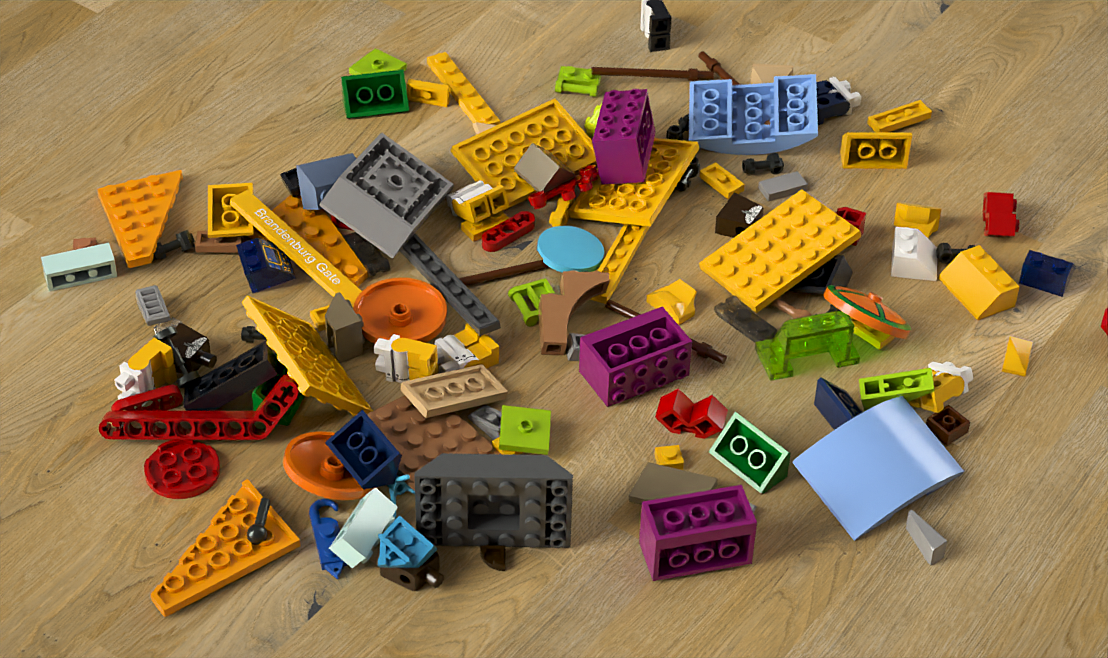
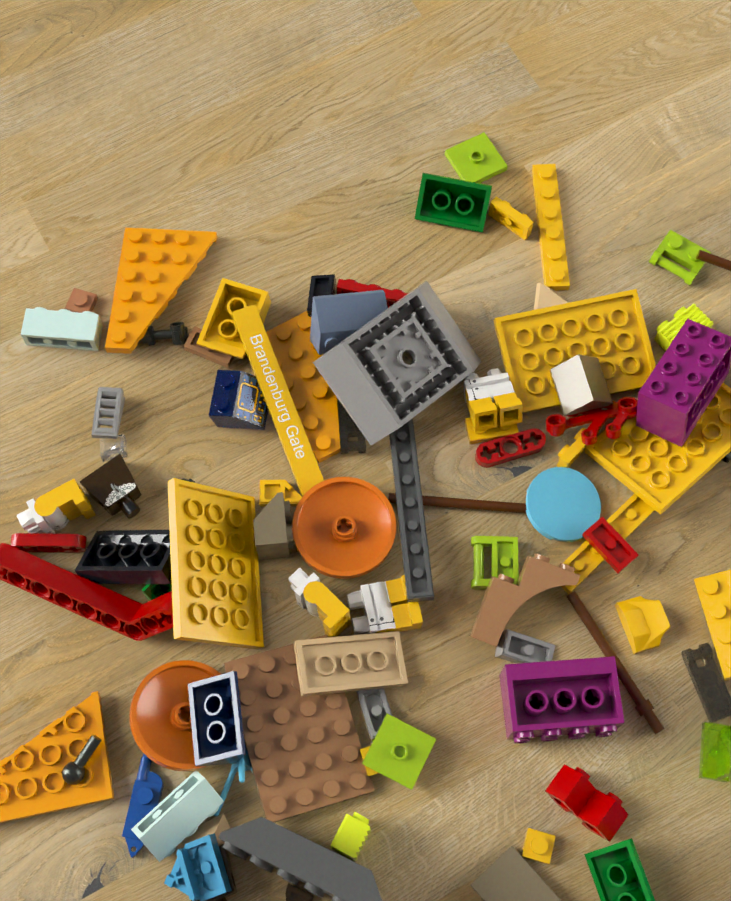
camera: 25 degrees right, 25 degrees up
(166, 335) = (100, 526): pearl dark grey wheel -> none
(182, 469) = (47, 642): red tile -> none
(622, 256) = (610, 545): none -> red plate

